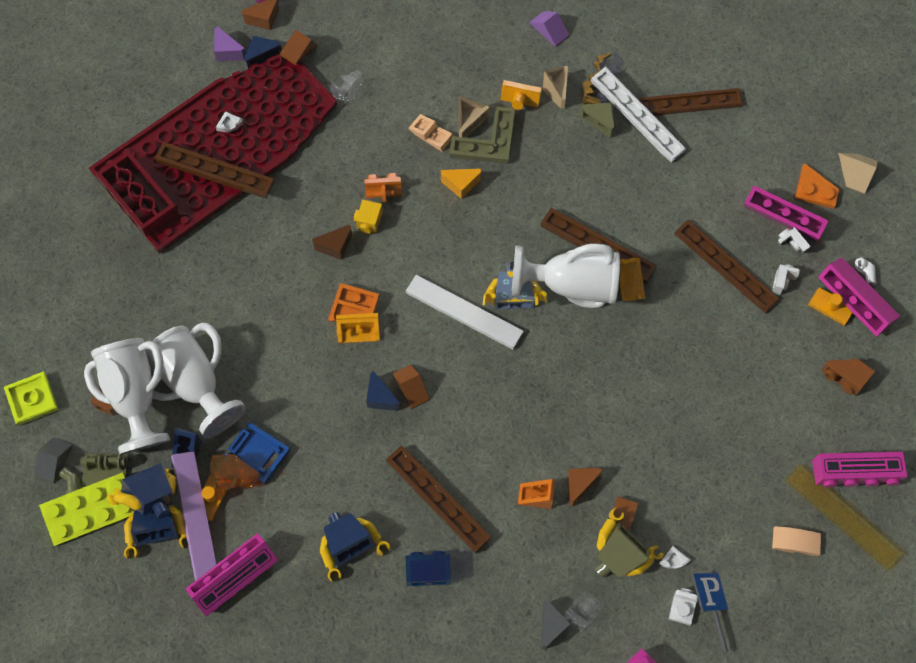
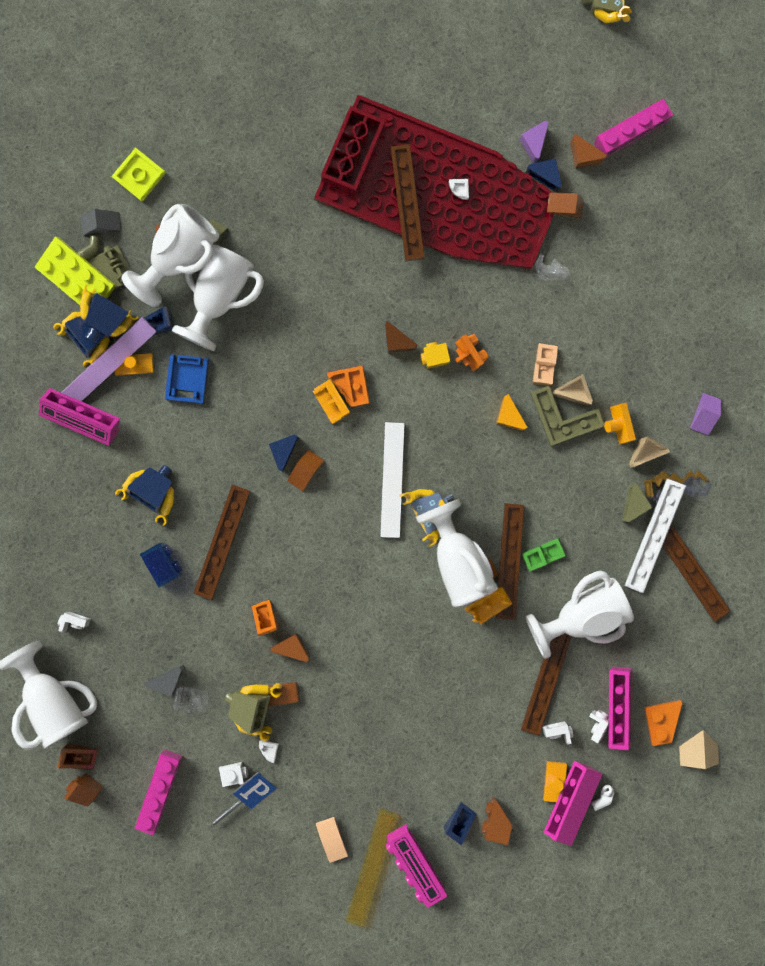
camera: 60 degrees right, 20 degrees up
(231, 472) = (157, 369): clear orange slope -> none
(606, 214) = (543, 554): none -> bright green slope
(682, 199) = (587, 614): none -> white piece
(834, 409) = (459, 823): none -> dark blue slope

